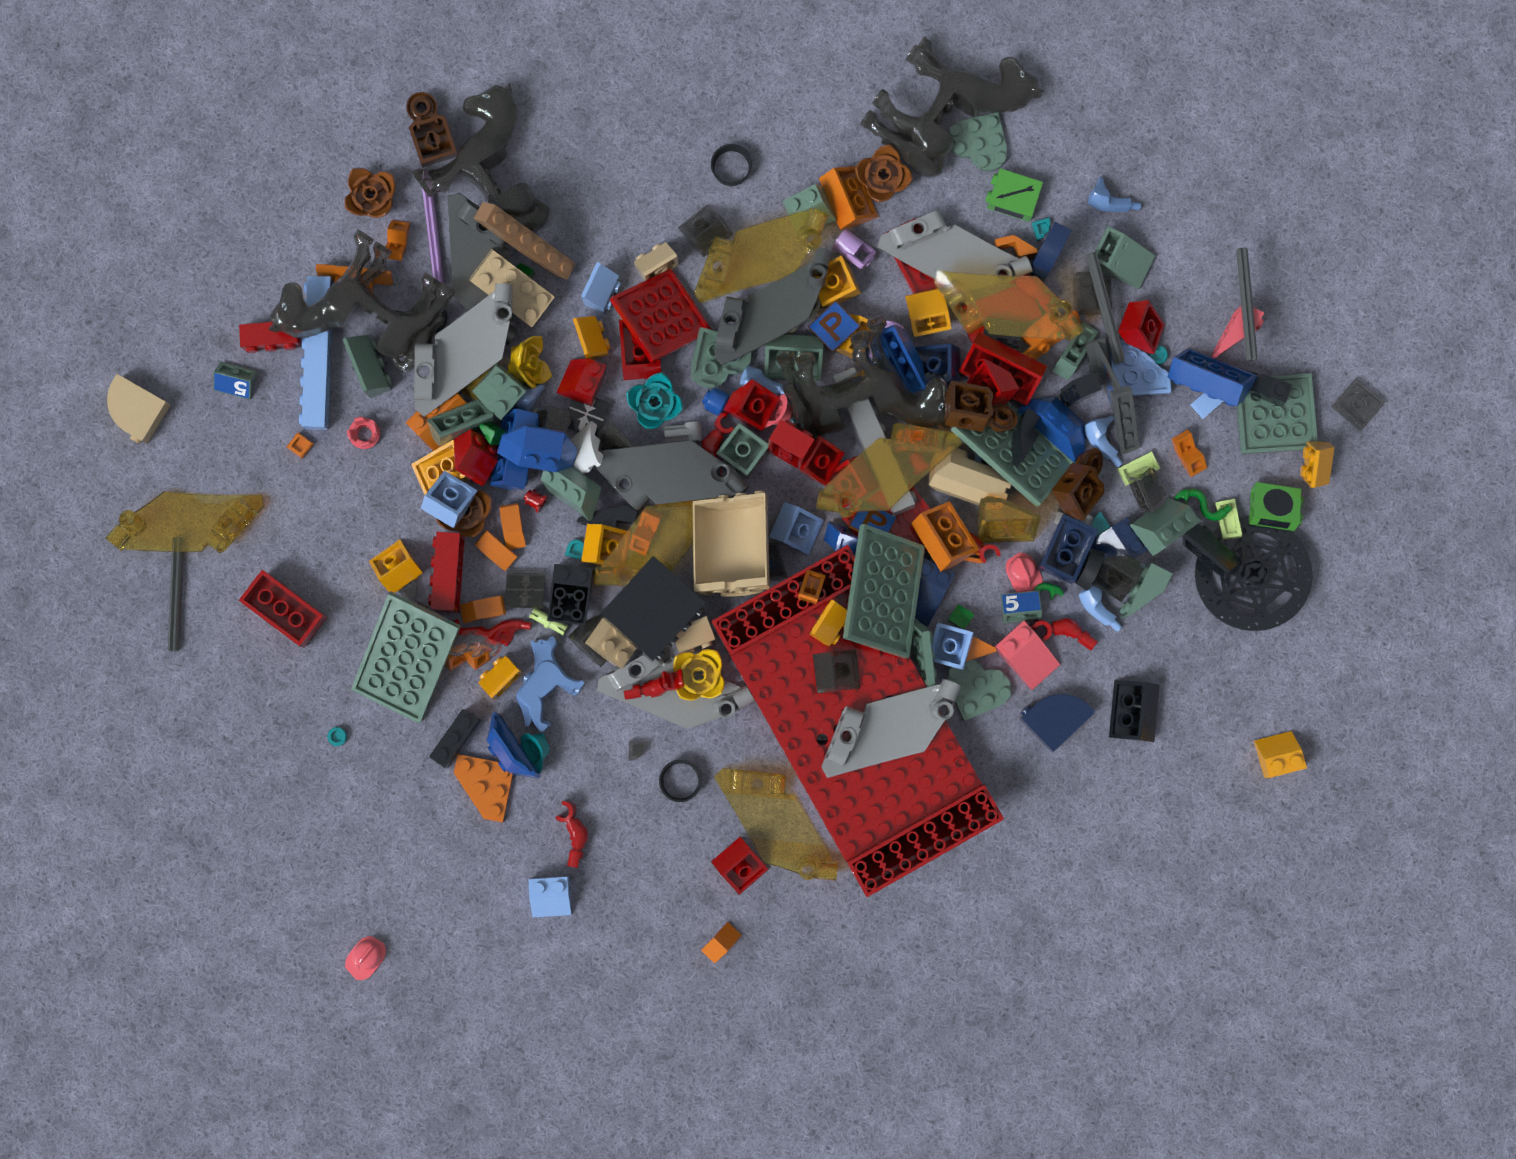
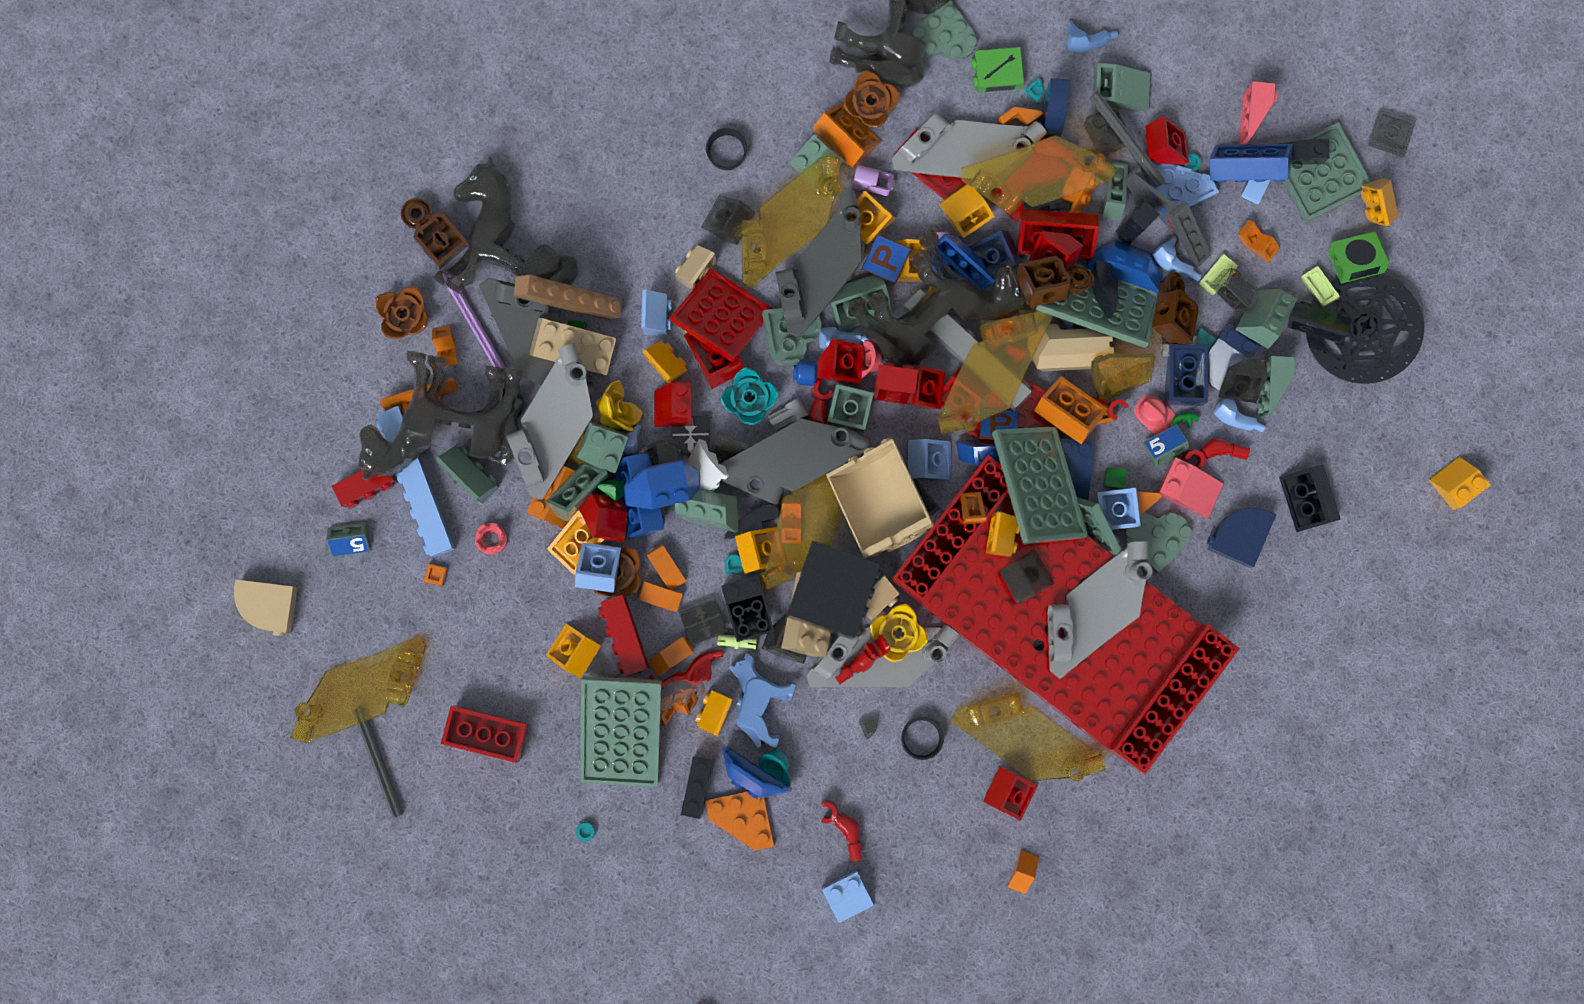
camera: 20 degrees left, 0 degrees up
(535, 499) = (676, 534): red brick -> none
(1090, 568) = (1217, 384): black tyre -> none
(1216, 516) = (1310, 287): green animal -> none
(1246, 304) = (1257, 82): dark grey axle -> none

